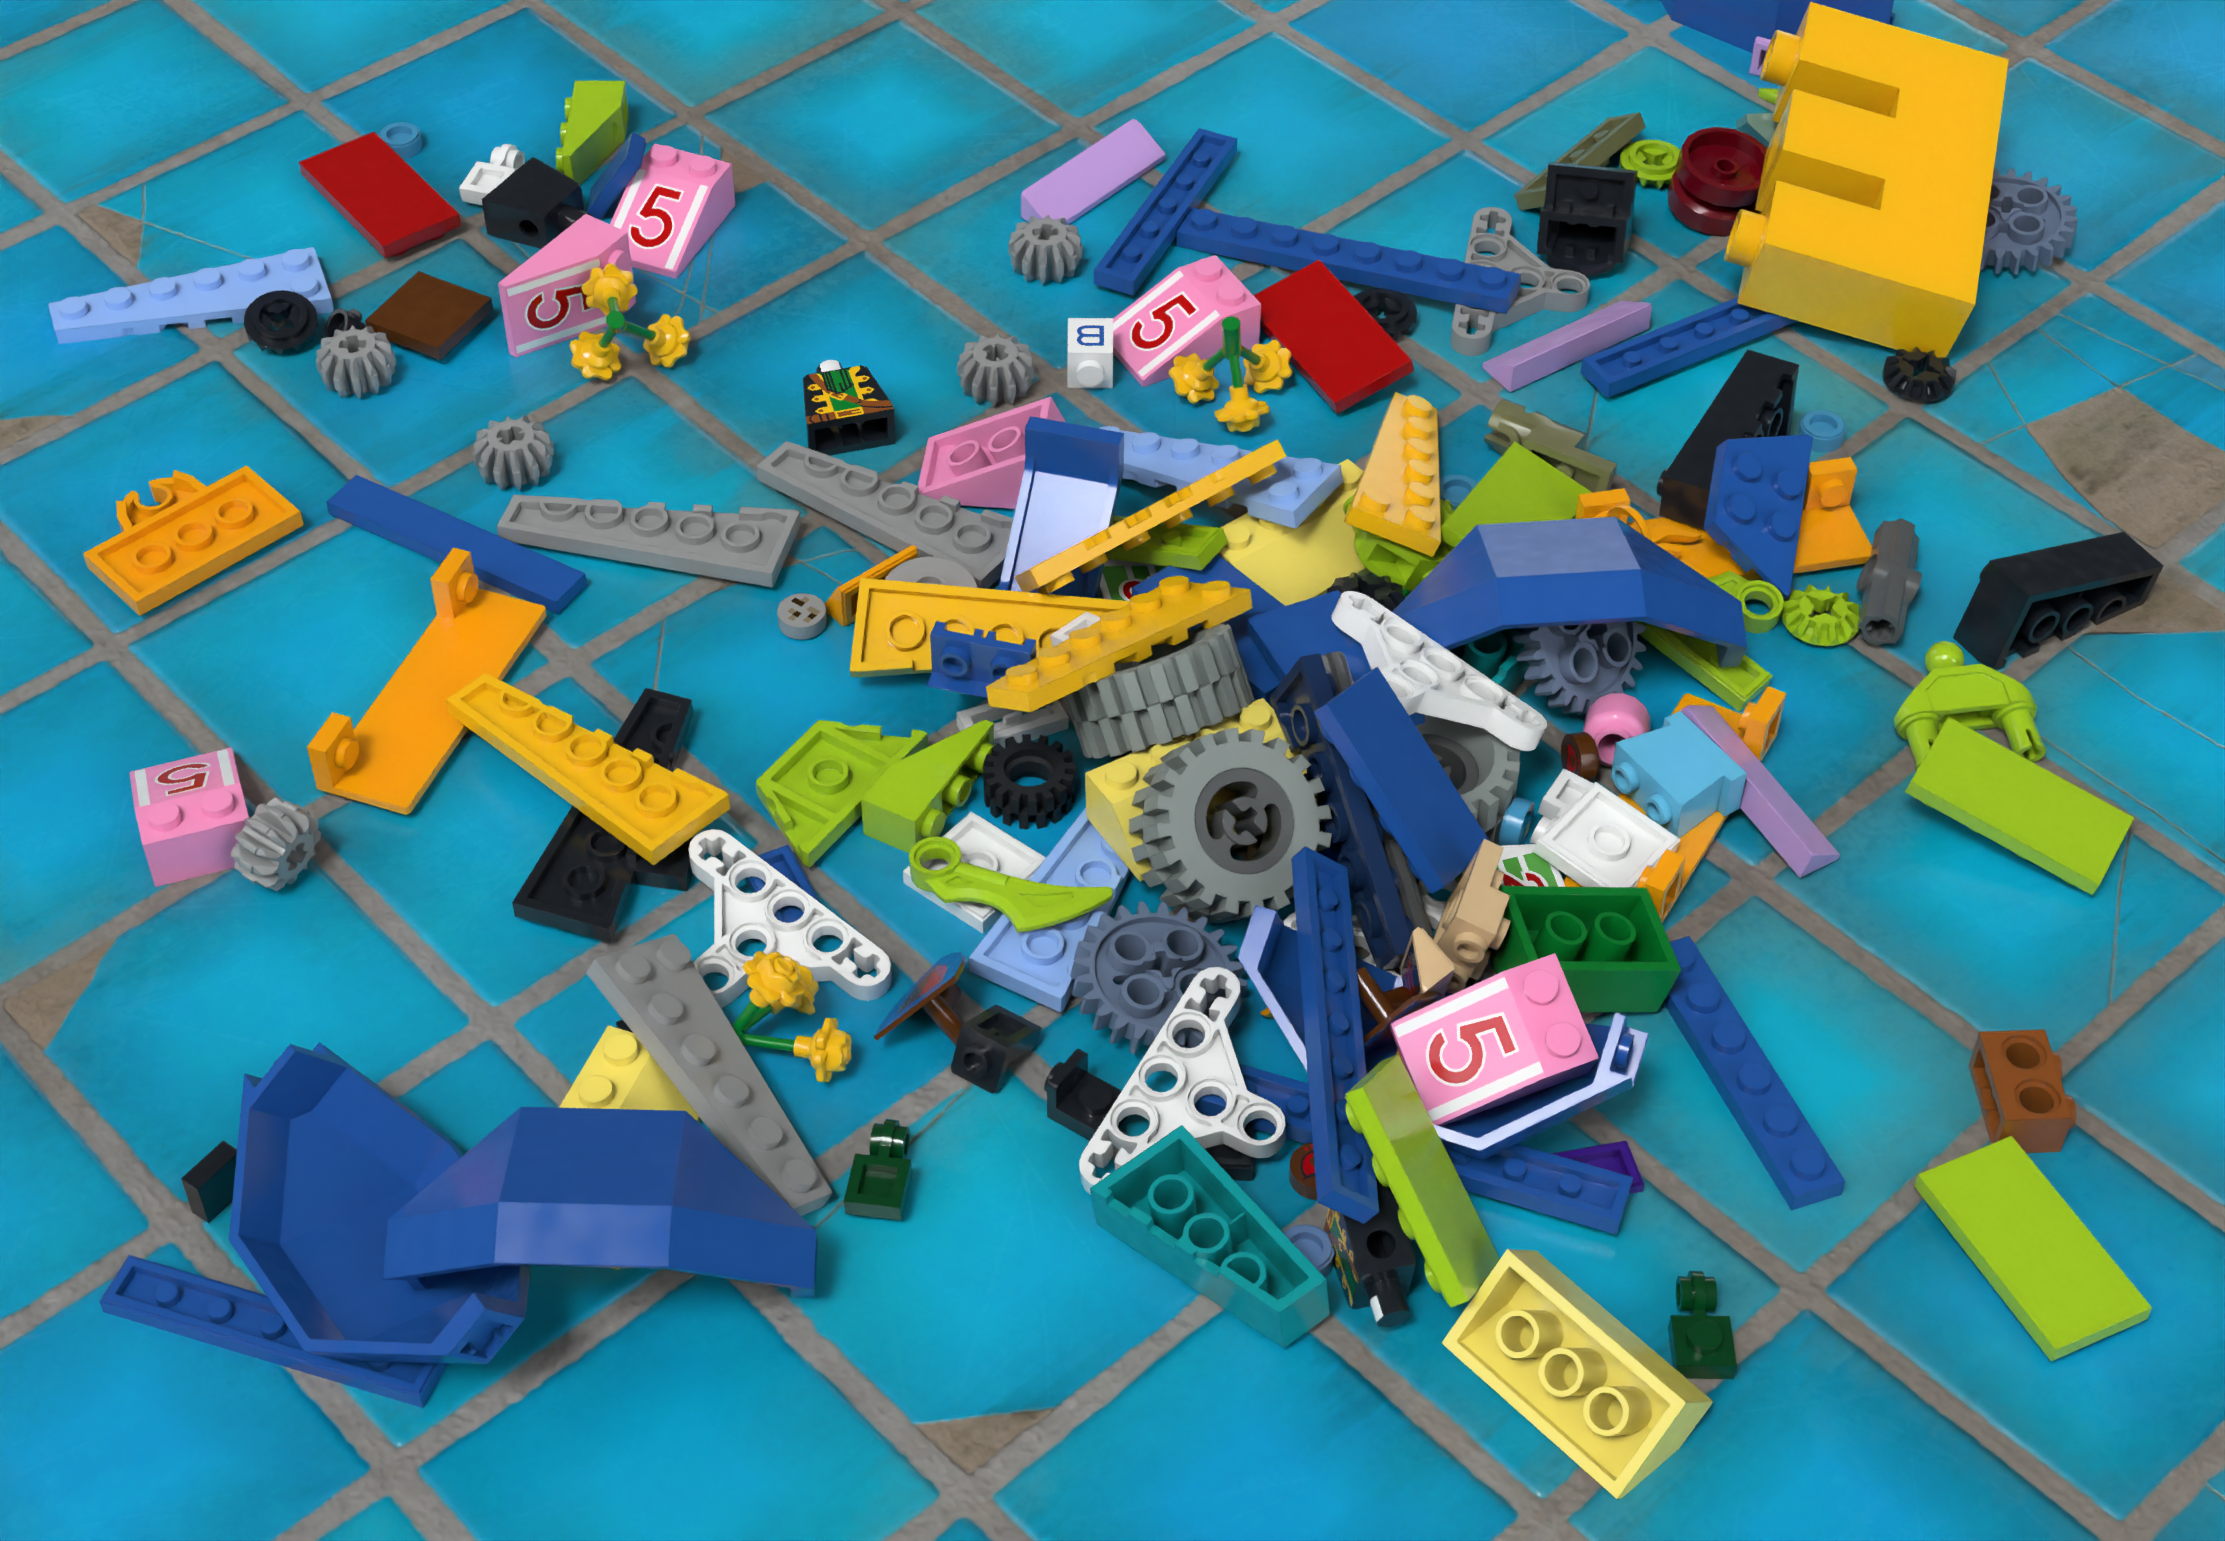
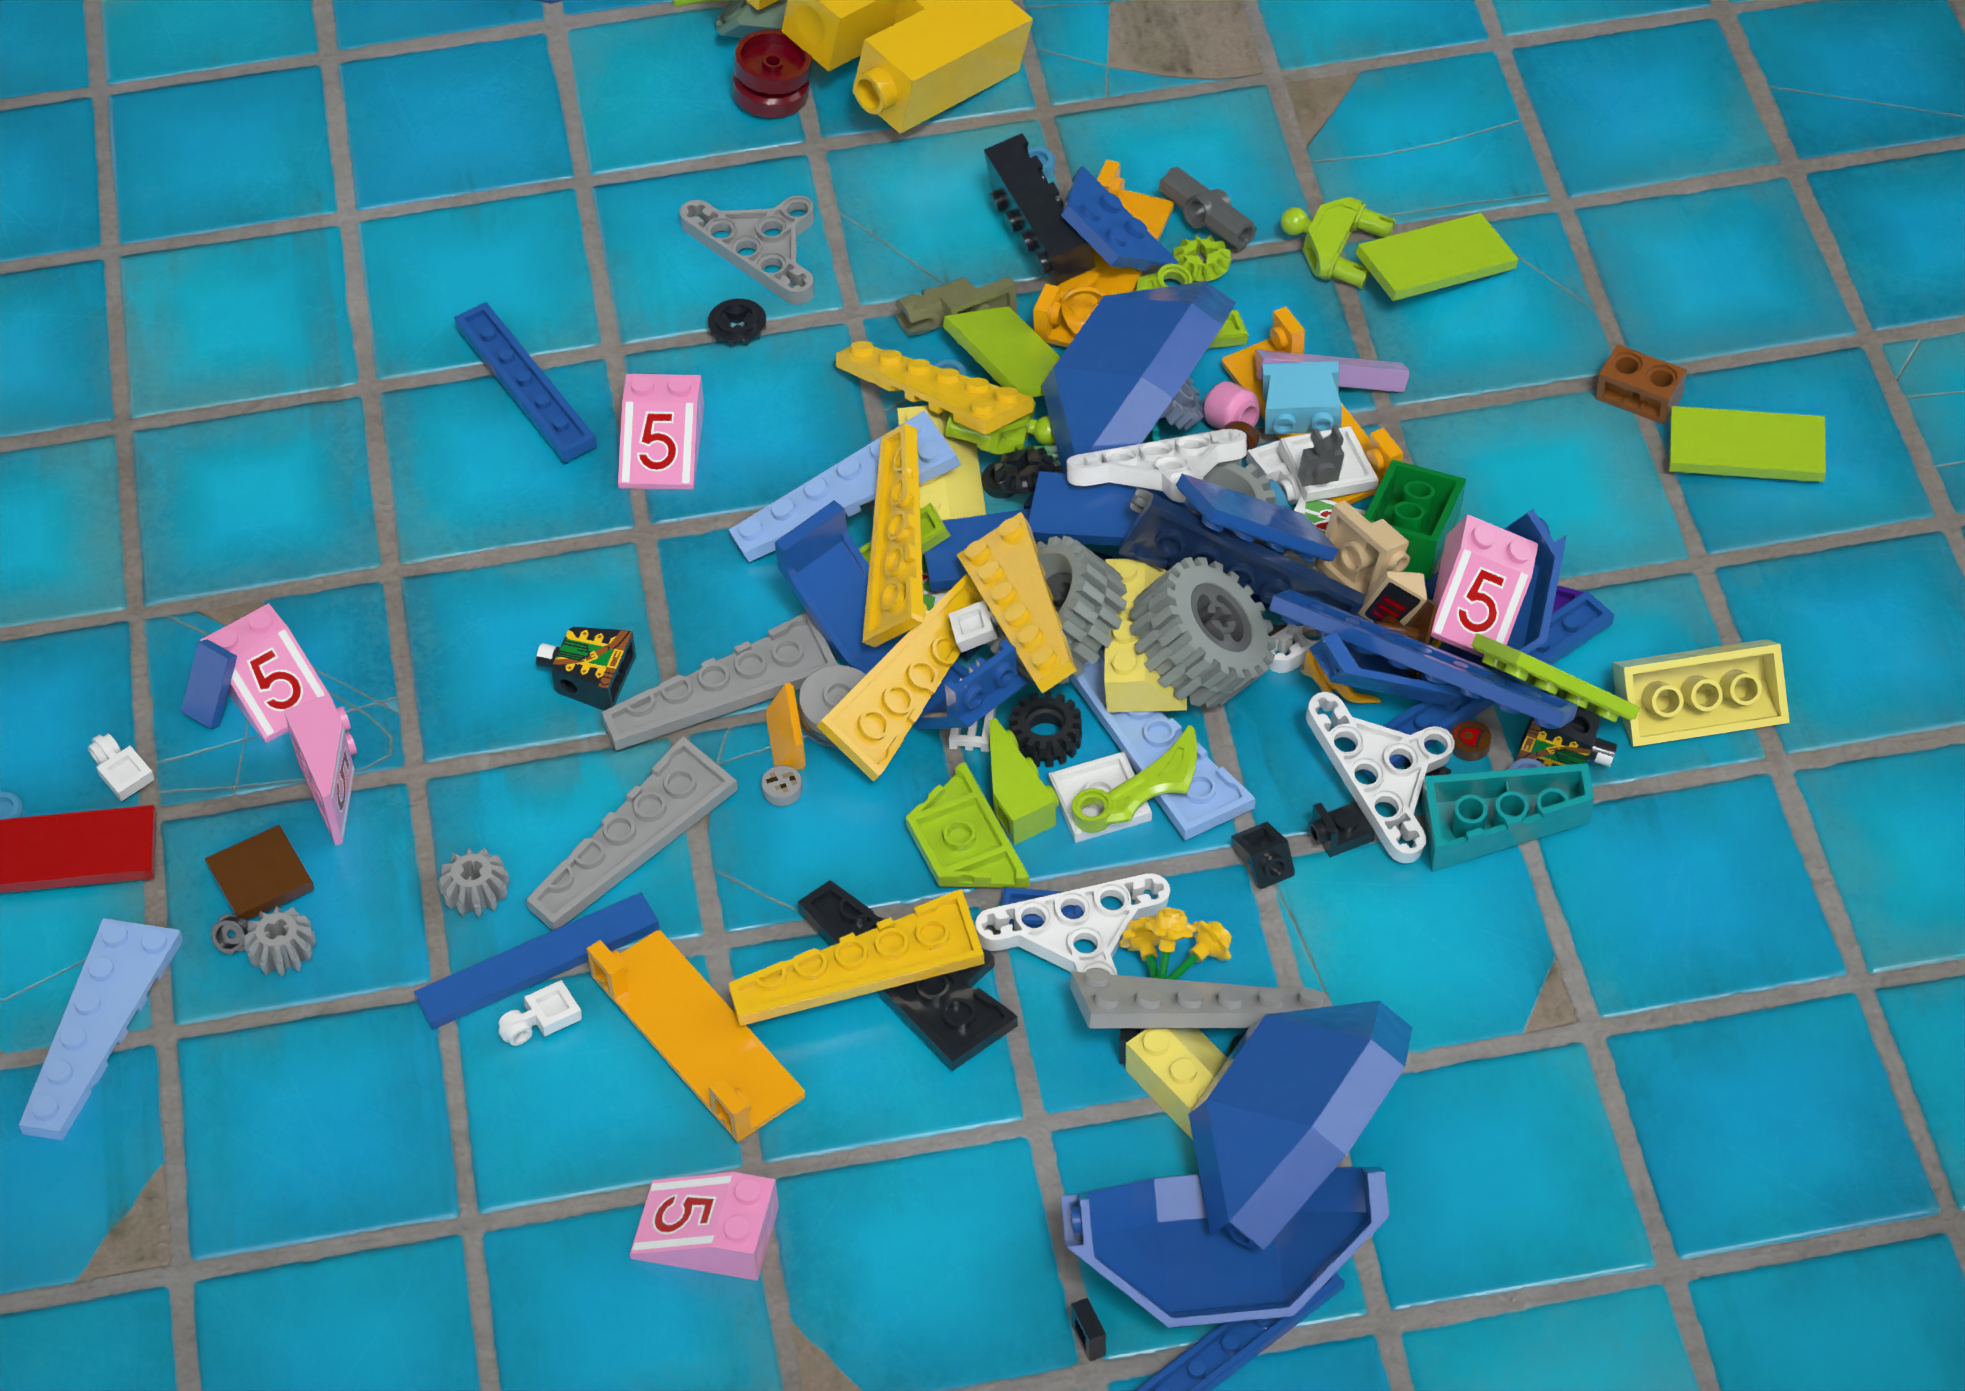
camera: 55 degrees left, 5 degrees up
(188, 534) = (394, 1124): light orange plate -> none
(276, 844) = (799, 1177): light grey gear -> none
(277, 307) = (190, 958): black gear -> none
(390, 576) = (547, 1008): none -> white plate
(533, 205) = (188, 751): black torso -> none
(593, 127) = (109, 673): lime slope -> none
(611, 293) = (419, 740): yellow plant -> none
(882, 1179) = (1334, 964): dark green plate -> none
(935, 994) = (1202, 862): reddish brown shield -> none
(983, 459) = (720, 601): bright pink slope -> none
(995, 369) = (621, 558): light grey gear -> none
(1045, 249) = (511, 469): light grey gear -> none
(1090, 353) = (649, 498): white brick -> none
(1093, 175) = (449, 407): lavender slope -> none
(1147, 963) = (1244, 732): sand blue gear -> none
(1264, 366) = (747, 410): yellow plant -> none
(1331, 337) = (748, 358): red tile -> none
(1350, 260) = (671, 309): blue plate -> none
(1569, 344) = (847, 241): lavender slope -> none
(1573, 817) = (1323, 461): none -> dark grey plate
(1586, 217) = (752, 161): black piece -> none
(1592, 150) = (675, 133): olive plate -> none
(1652, 159) = (692, 94): lime gear -> none
(1677, 346) = (903, 189): blue plate -> none
(1700, 1343) = (1709, 627): dark green plate -> none
(1749, 1083) = (1553, 504): blue plate -> none
(1931, 385) = (1021, 96): black gear -> none
(2053, 594) = (1281, 140): black wedge -> none

